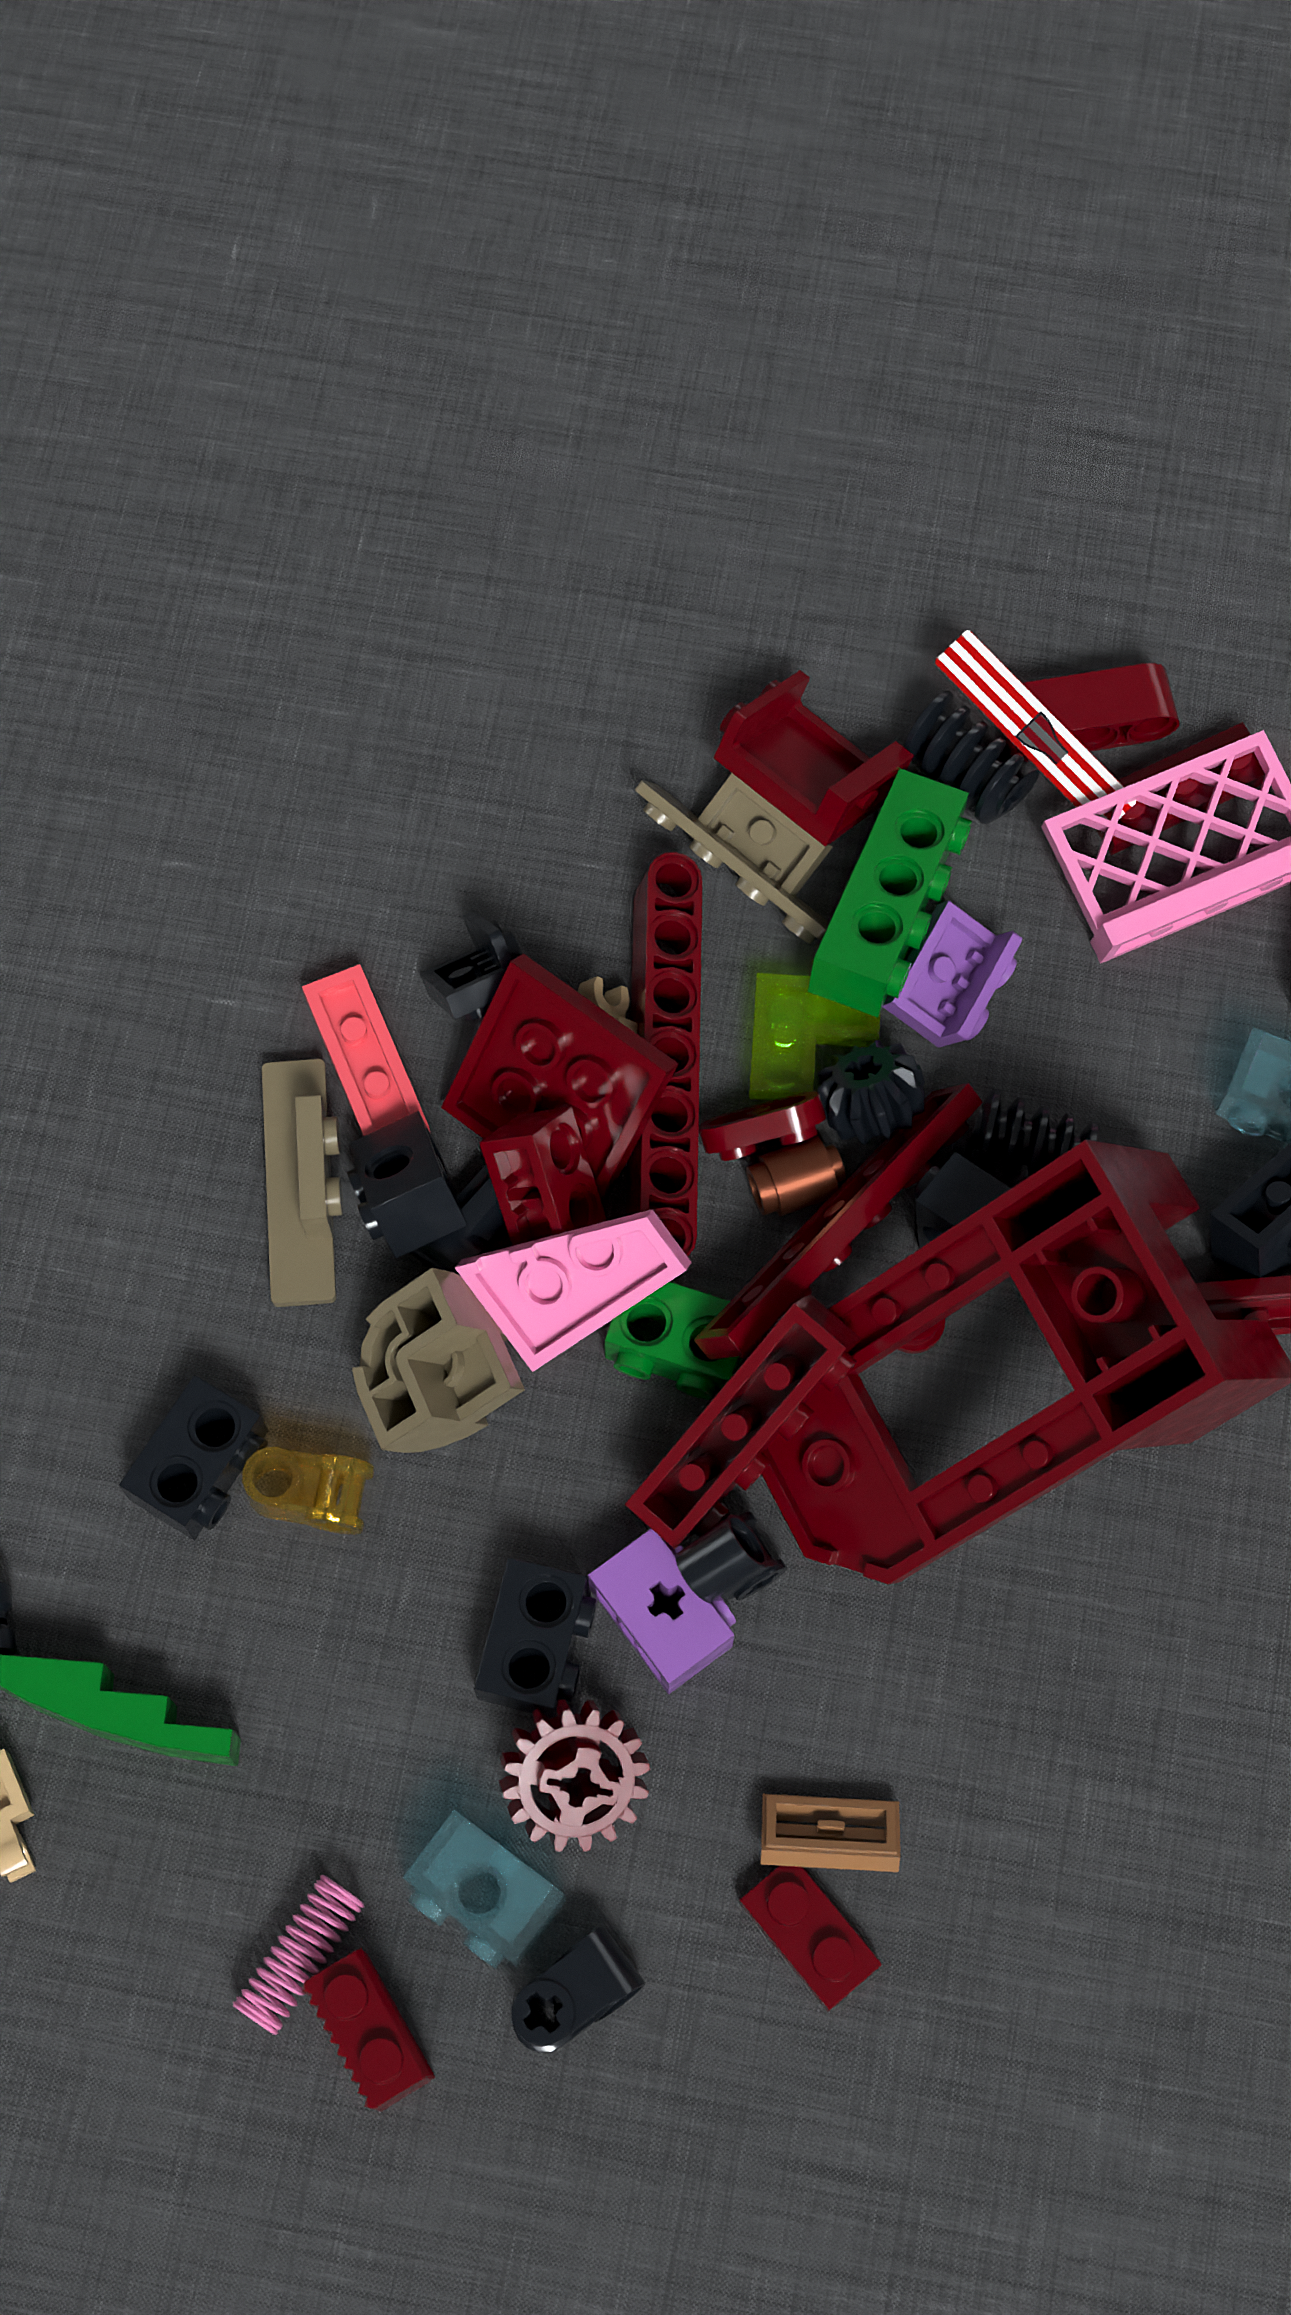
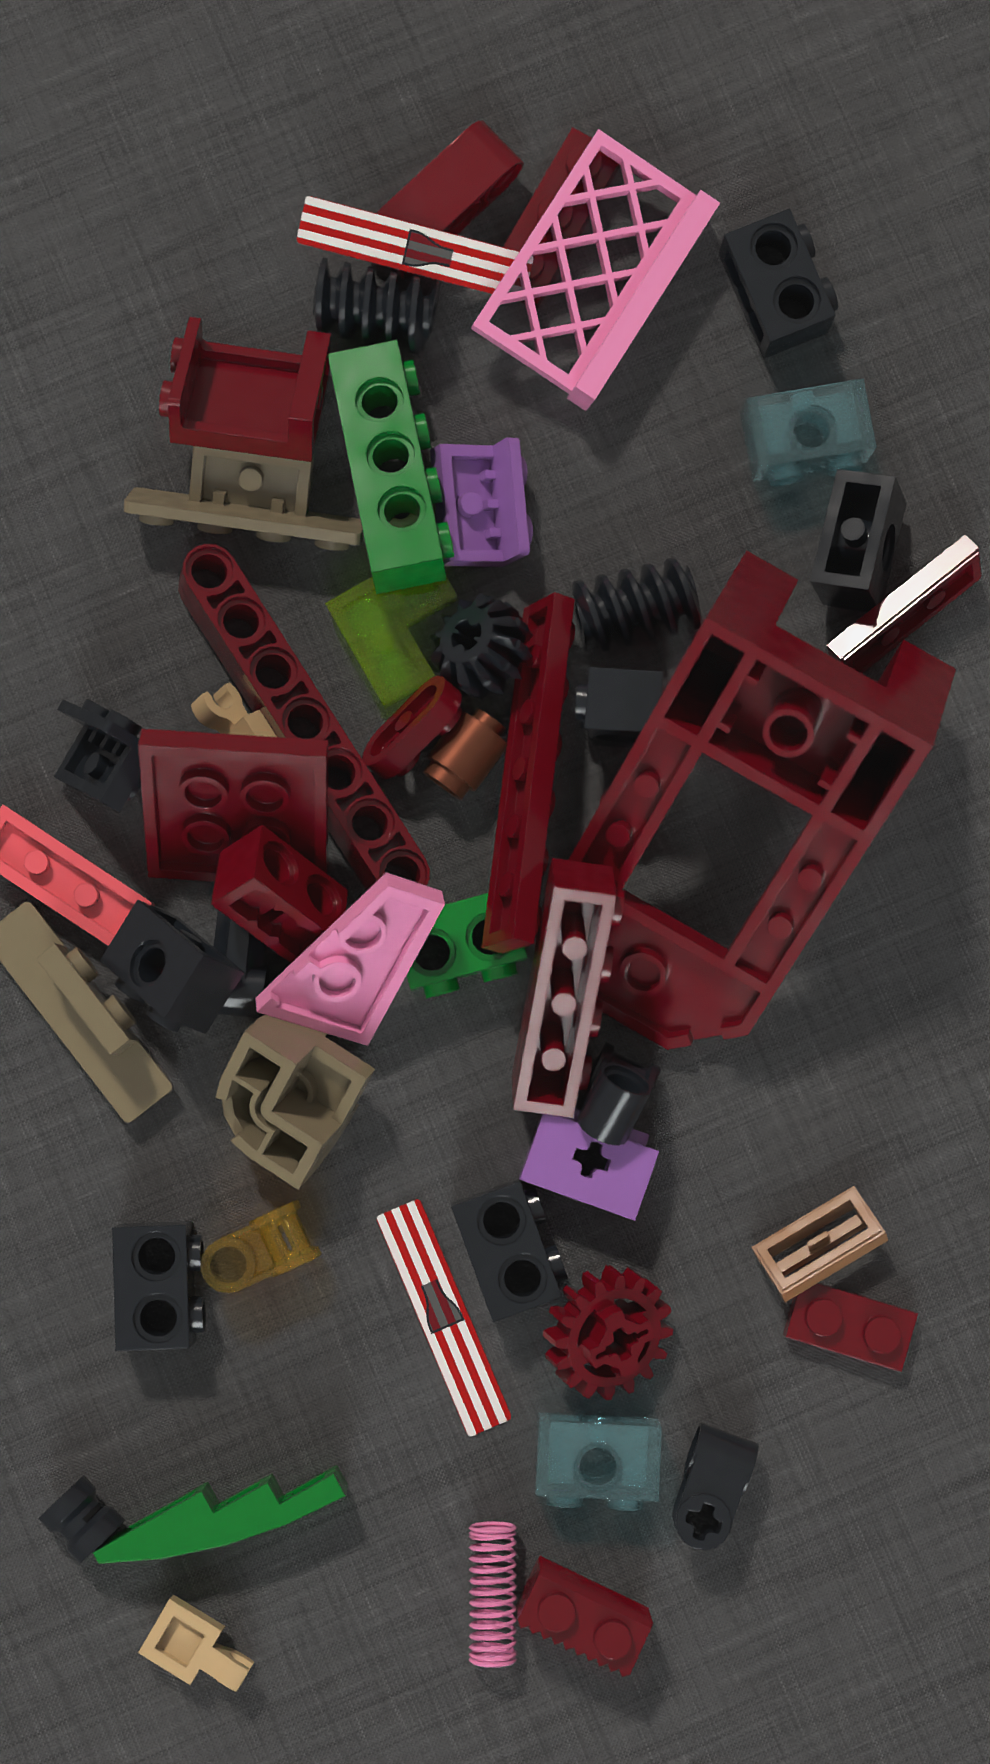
camera: 40 degrees left, 15 degrees up
(431, 1672) = (444, 1317): none -> sticker

